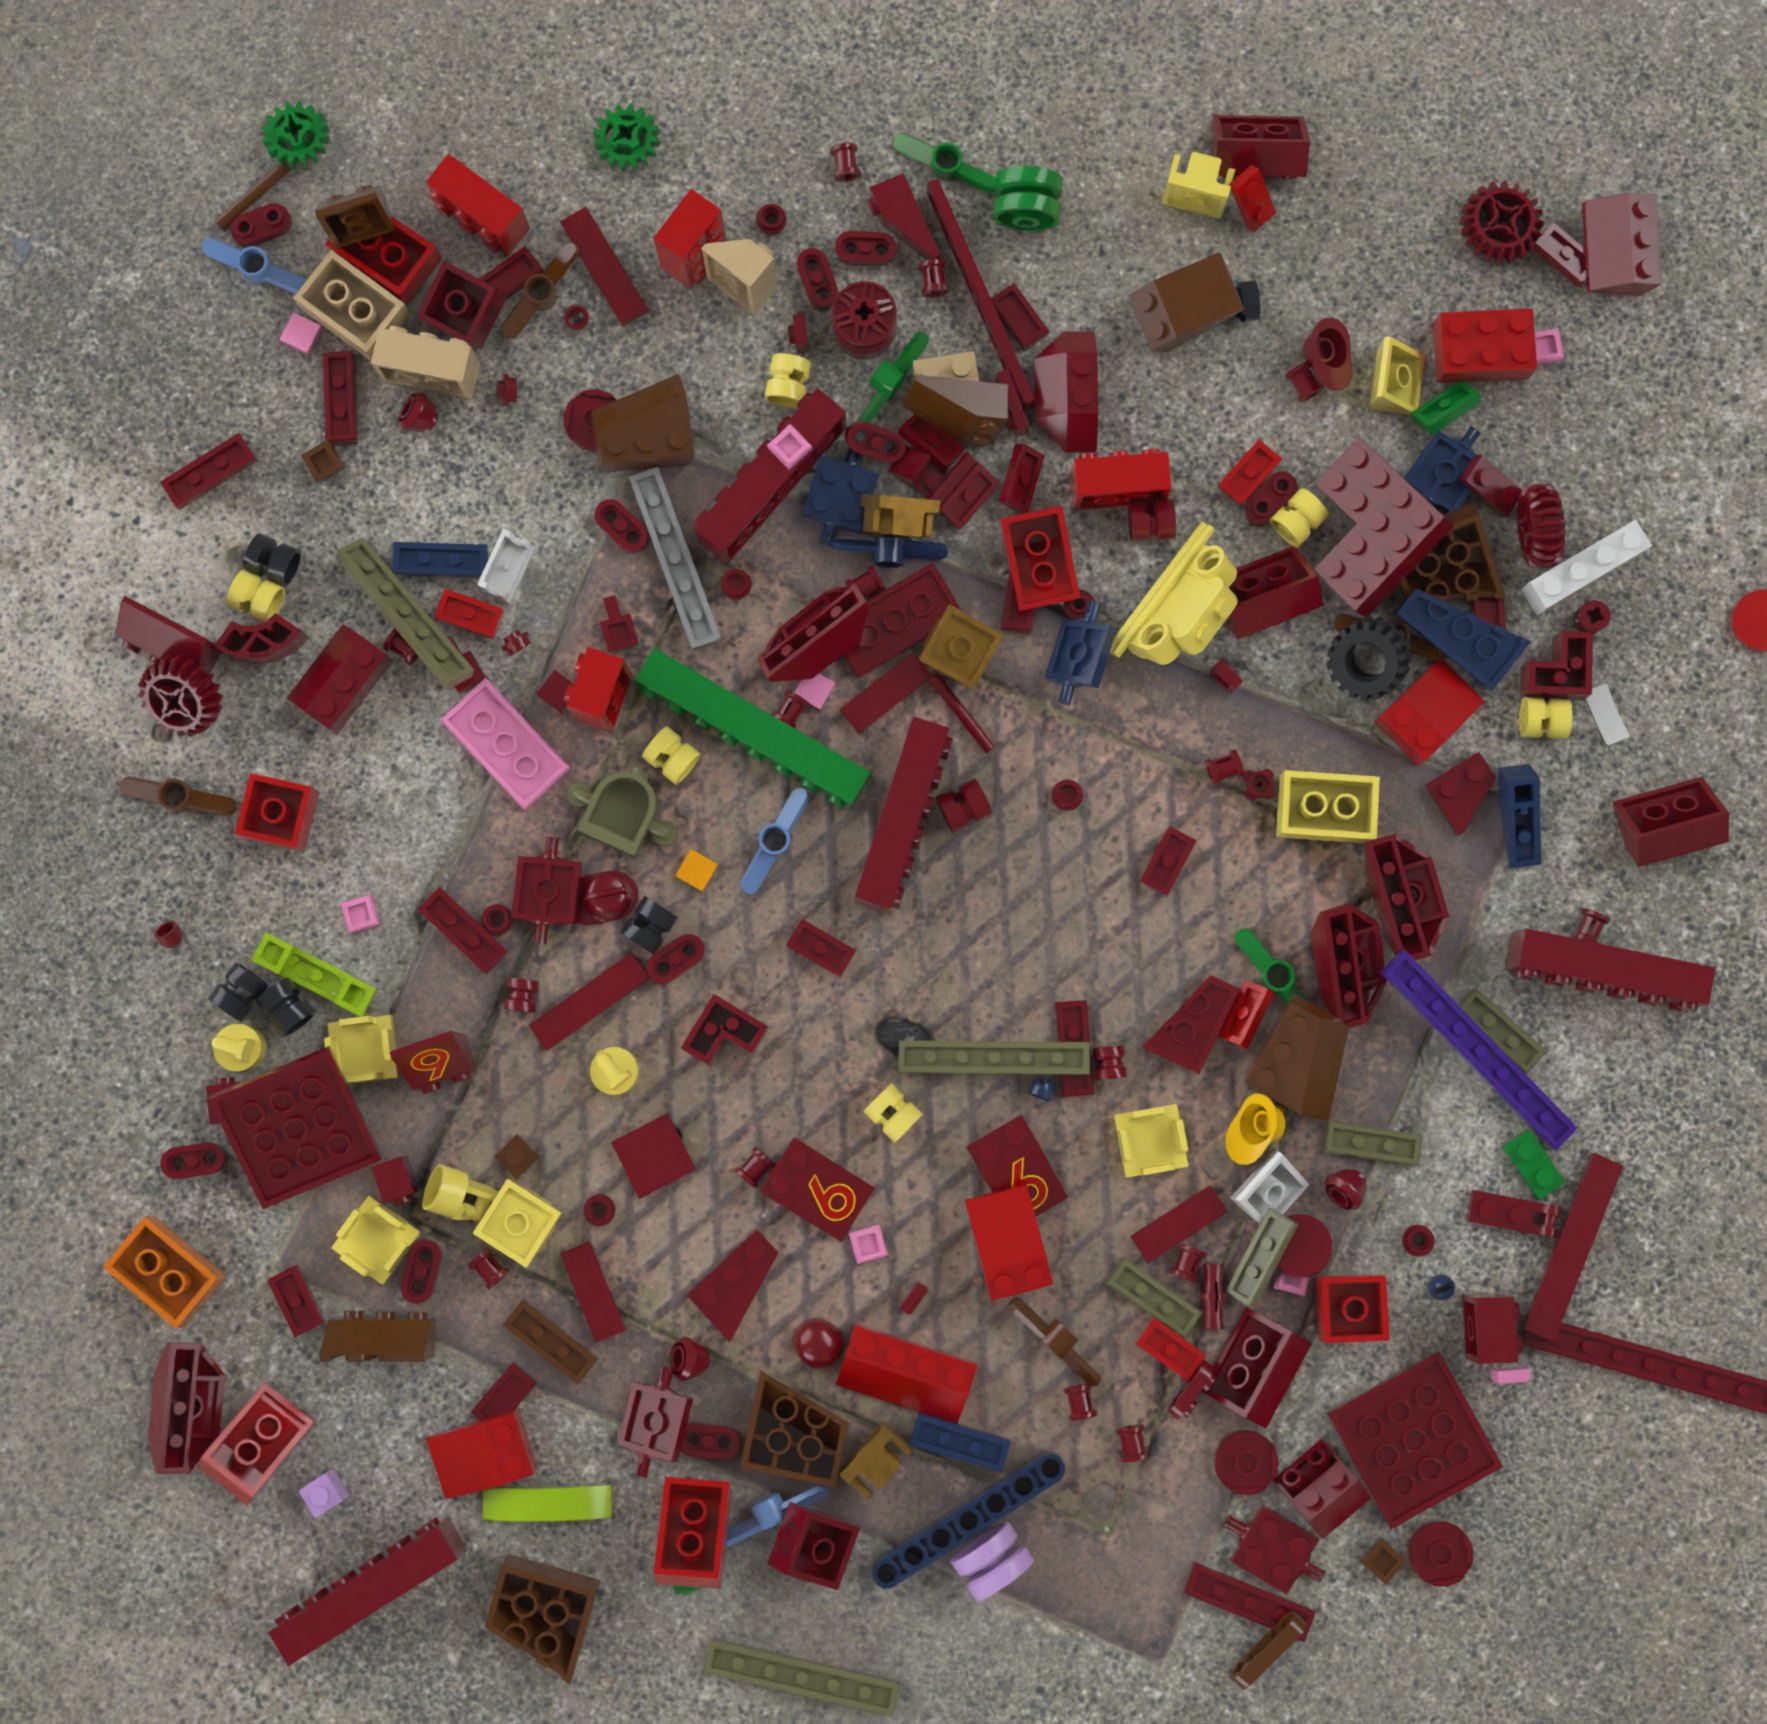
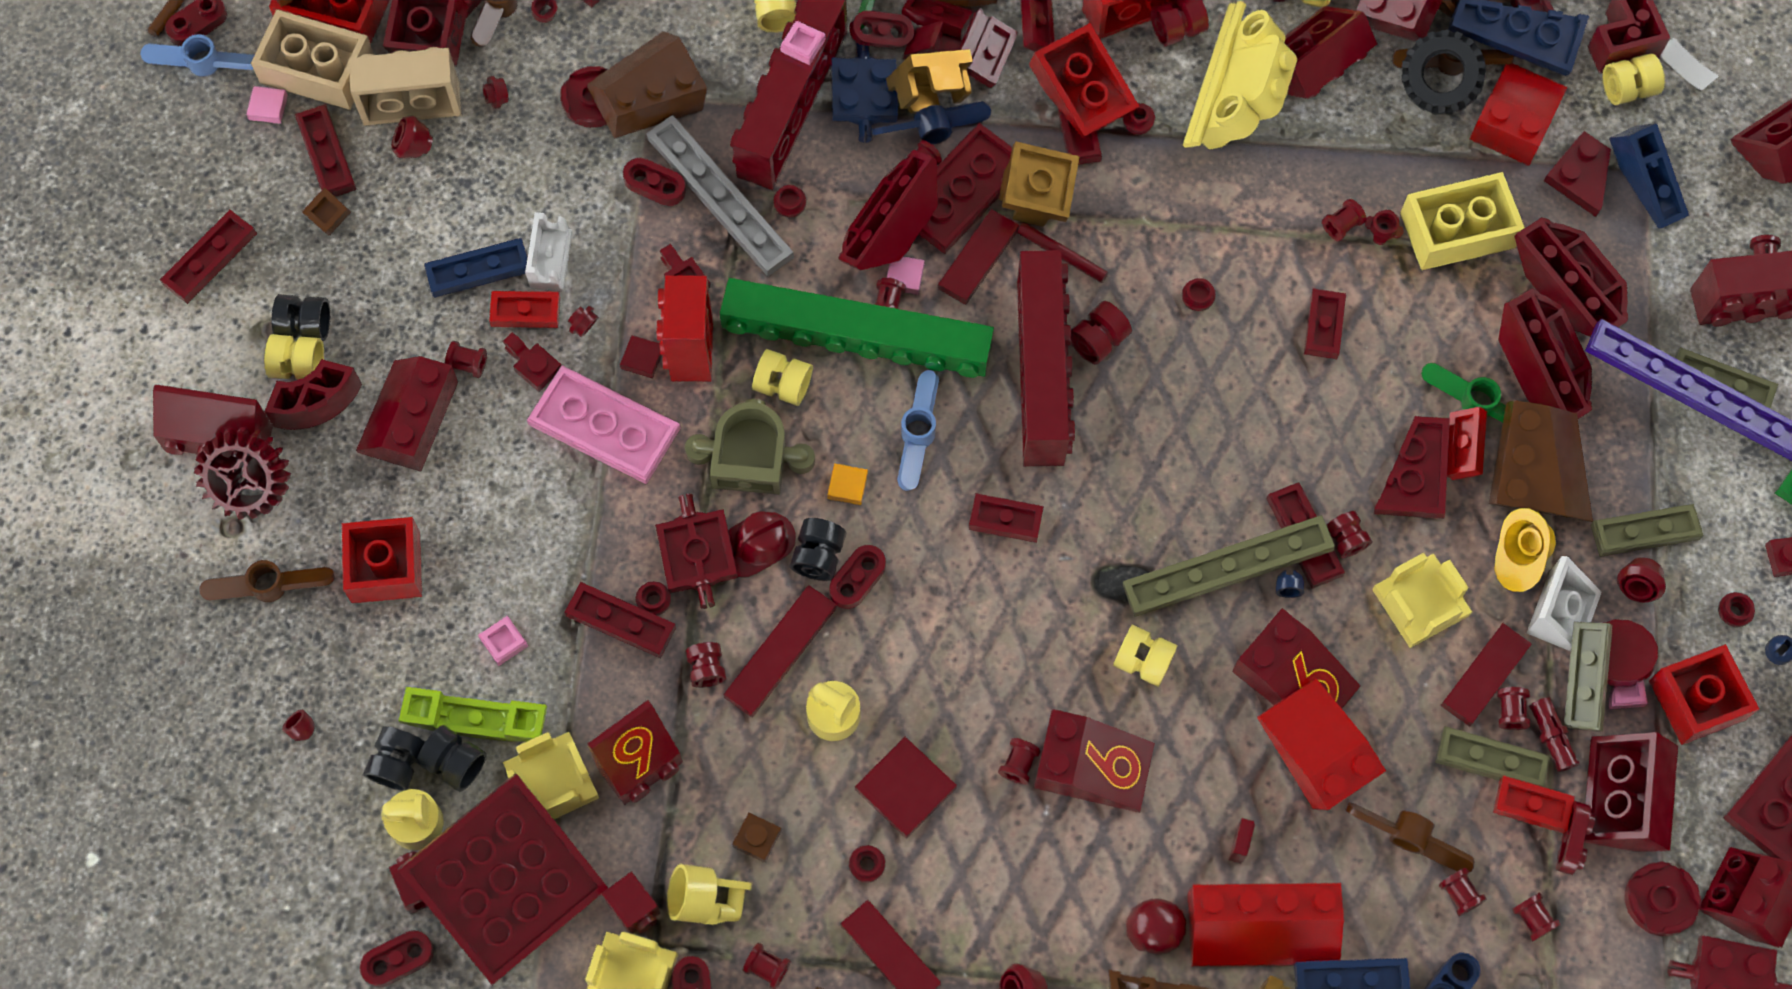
camera: 20 degrees left, 15 degrees down
(405, 613) = (458, 323): olive plate -> none
(518, 1223) = (784, 901): light yellow panel -> none
(722, 1022) = (934, 620): dark red brick -> none
(734, 1283) = (1041, 894): dark red wing -> none
(868, 1244) = (1170, 804): bright pink tile -> none
(1080, 653) = (1160, 155): dark blue plate -> none
(1226, 676) = (1310, 136): dark red tile -> none

